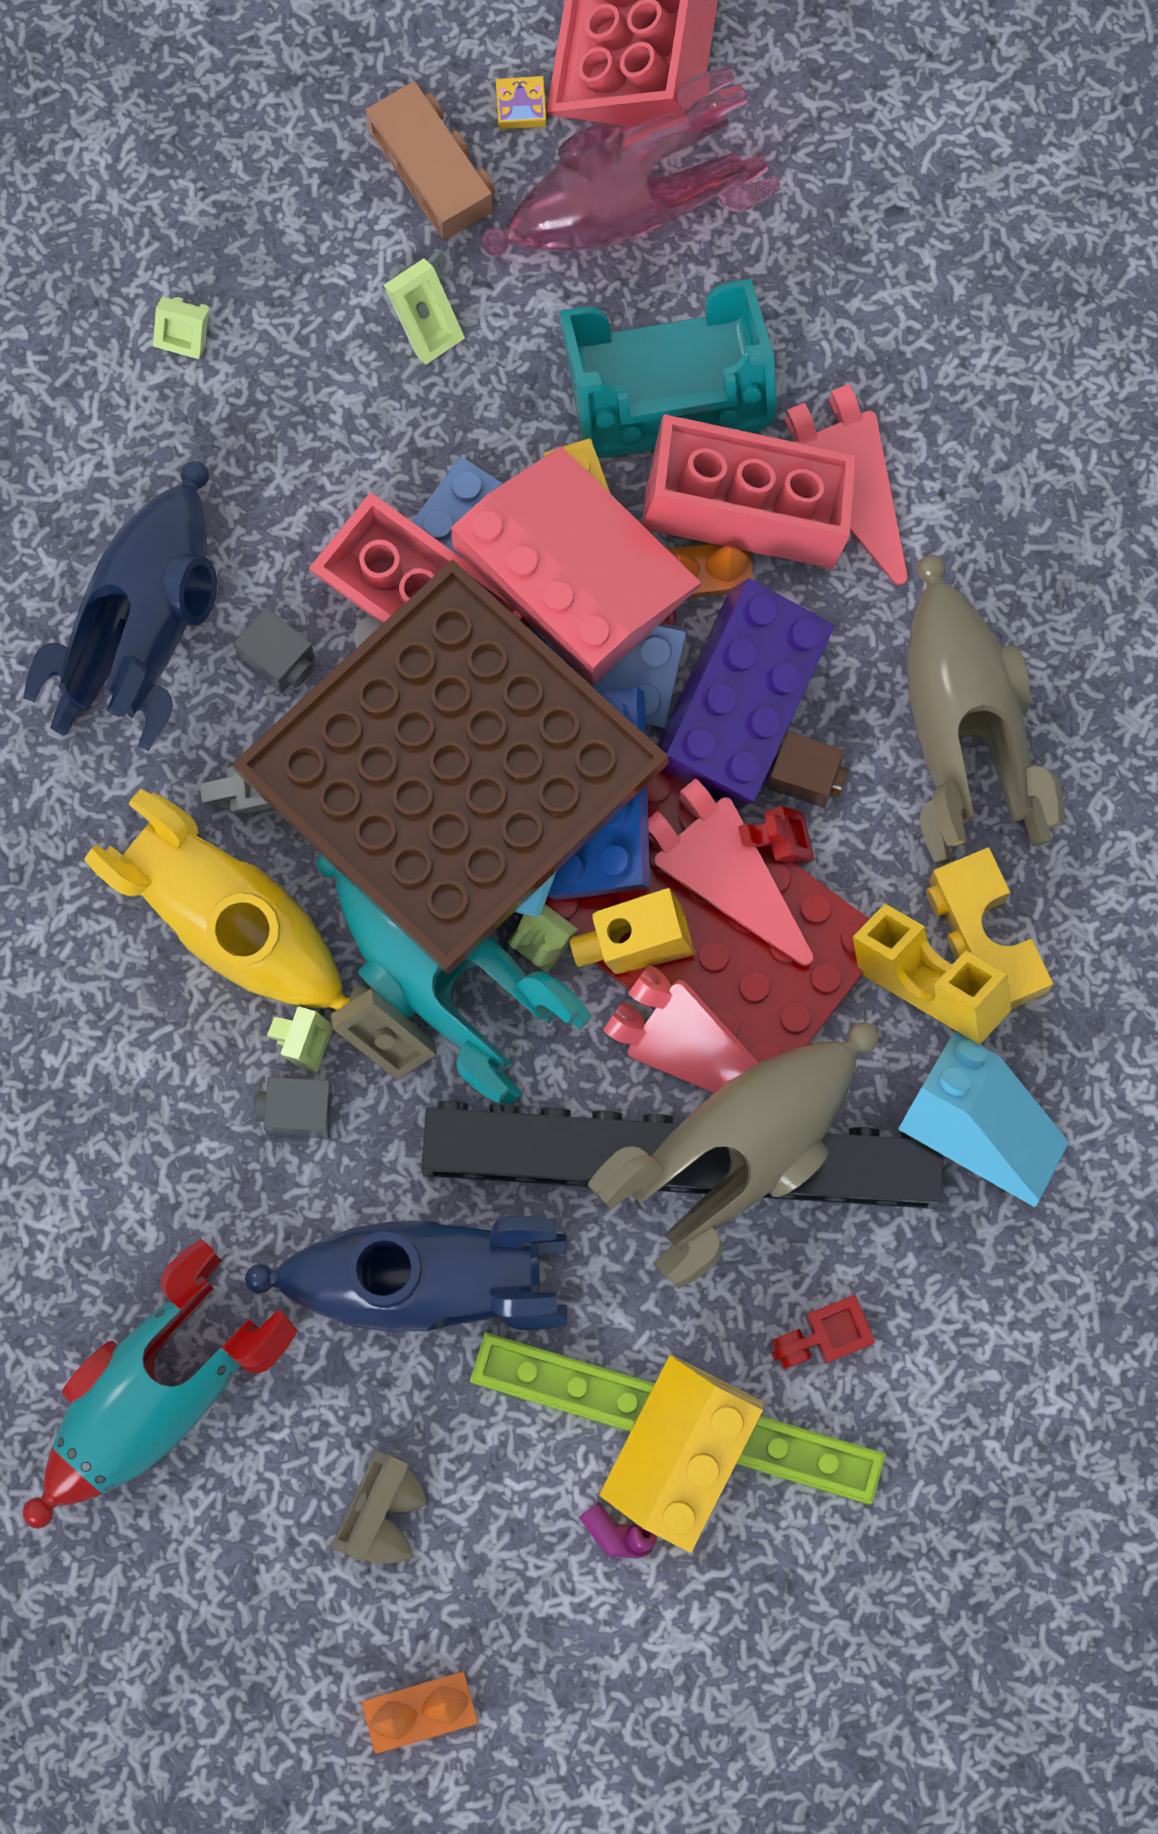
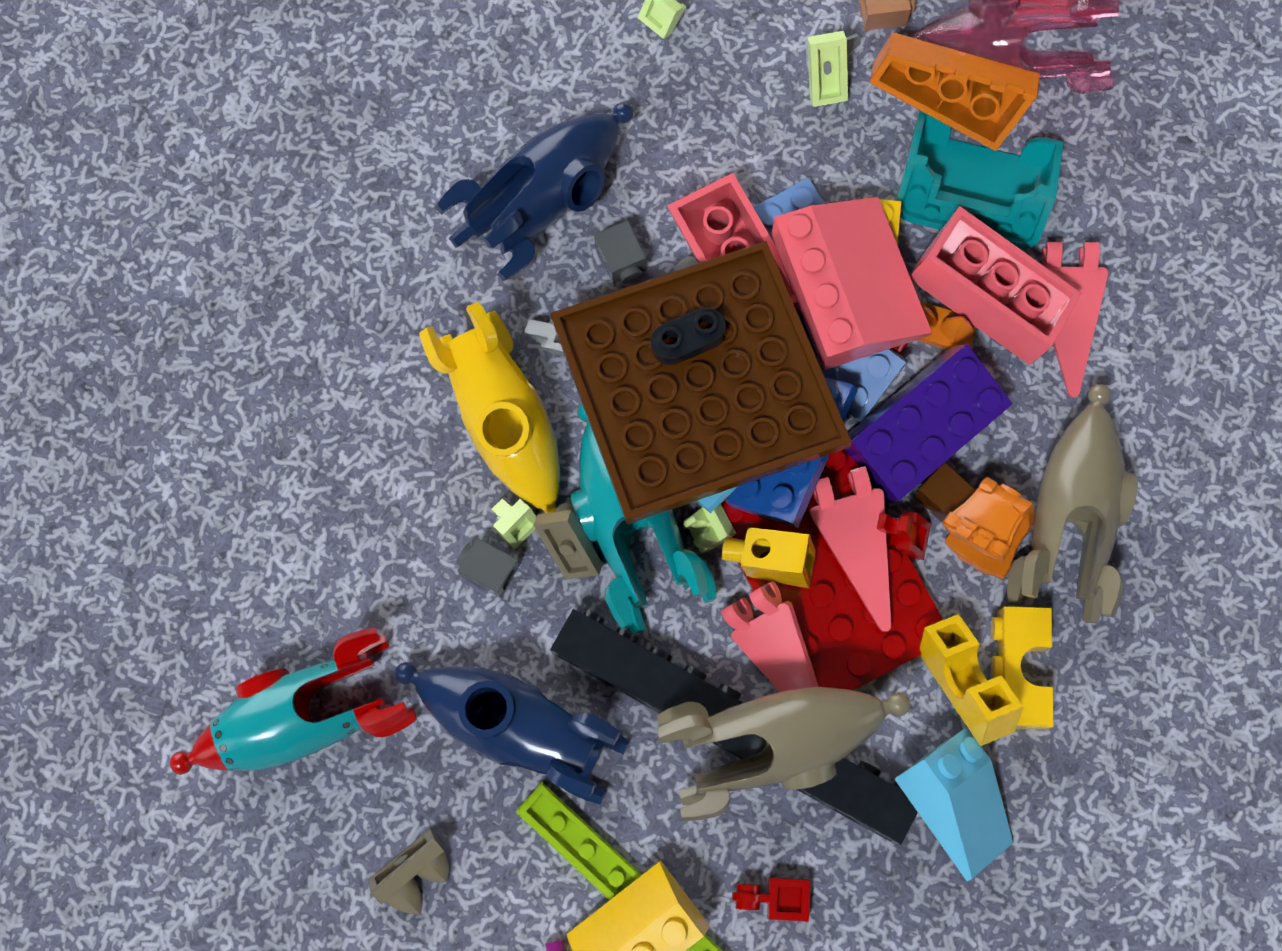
camera: 30 degrees right, 0 degrees up
(418, 716) = (690, 336): none -> black plate
(591, 268) = (956, 87): none -> orange wedge
(875, 785) = (990, 527): none -> orange piece

